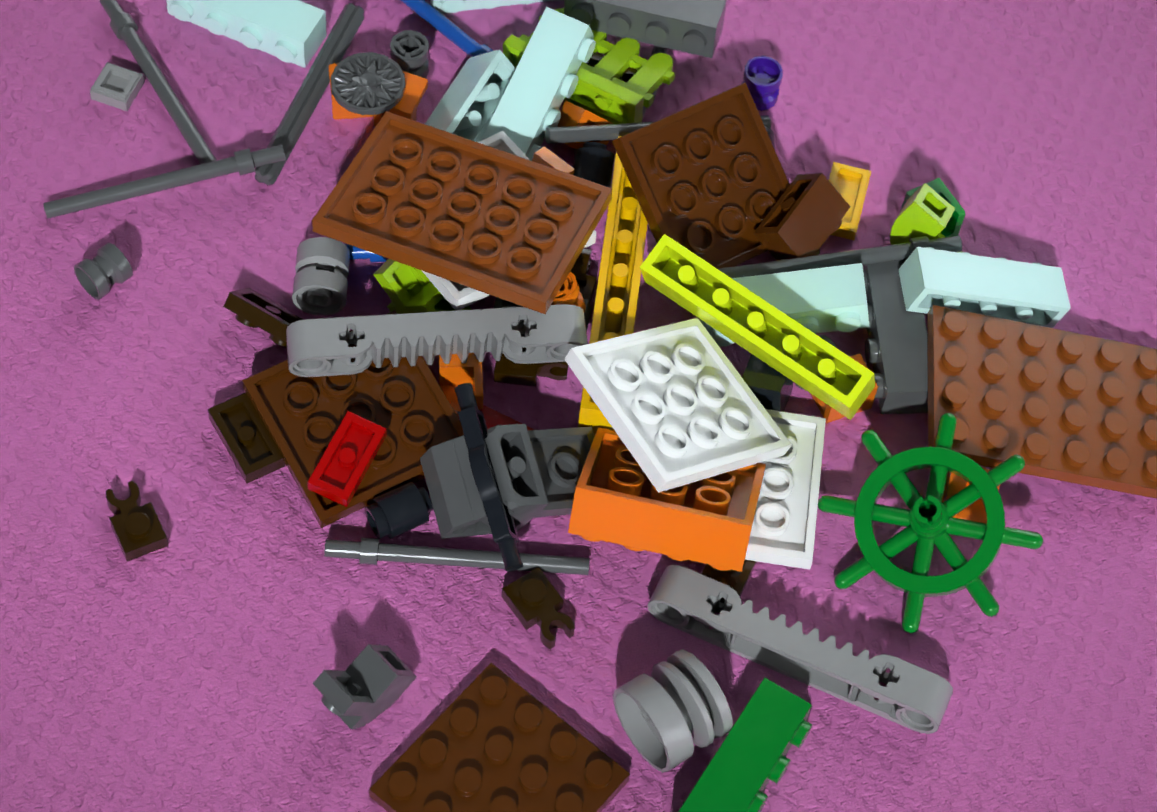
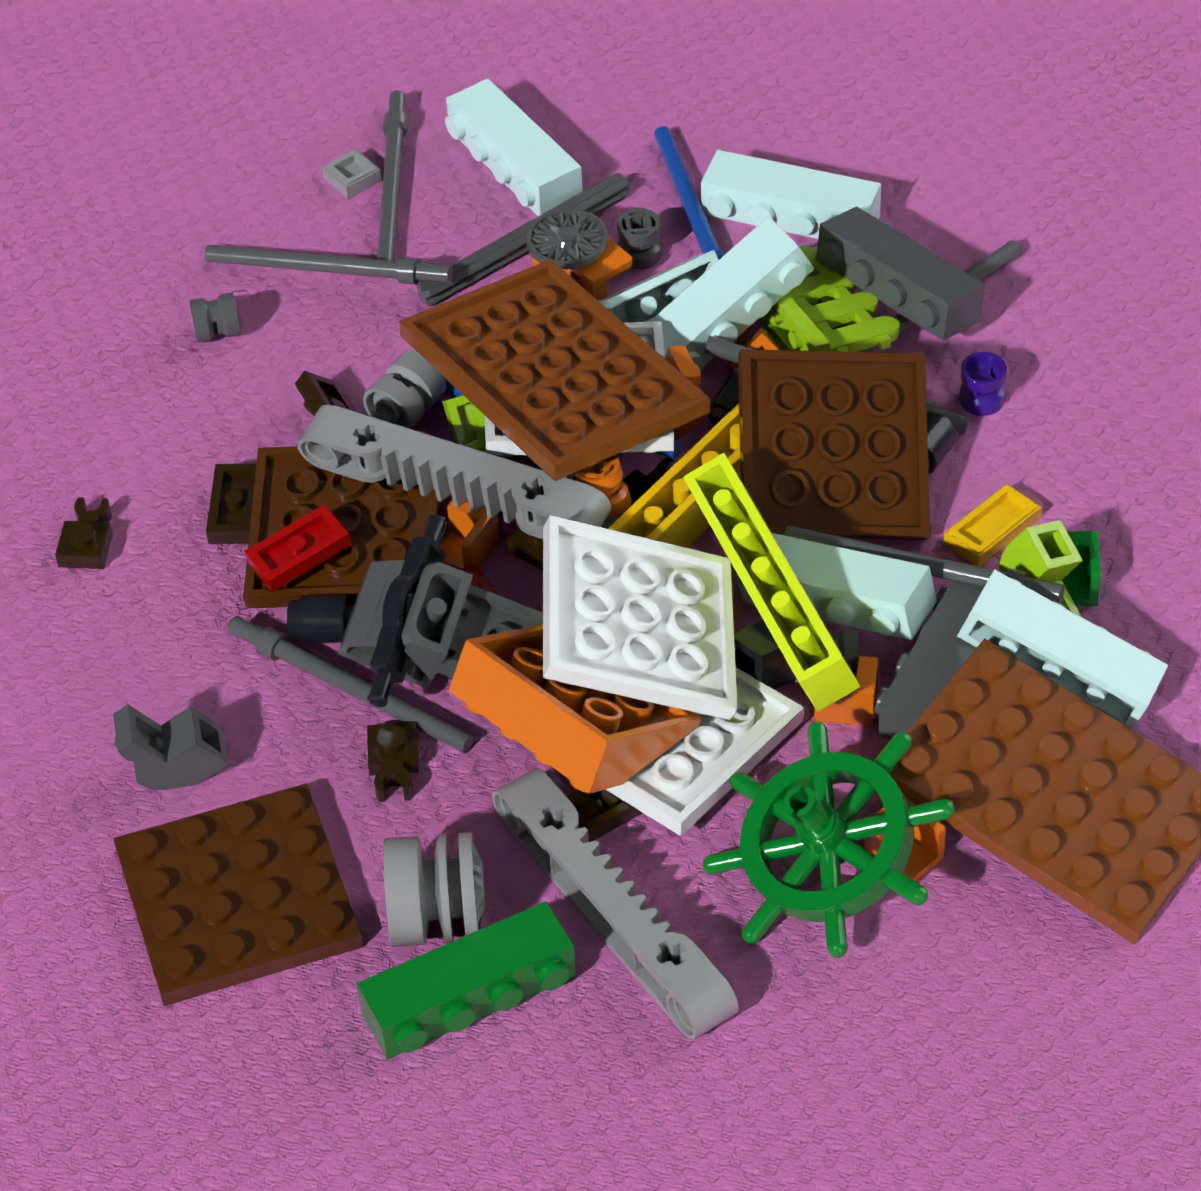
camera: 40 degrees right, 10 degrees down
(802, 218) = (916, 513): reddish brown brick -> none

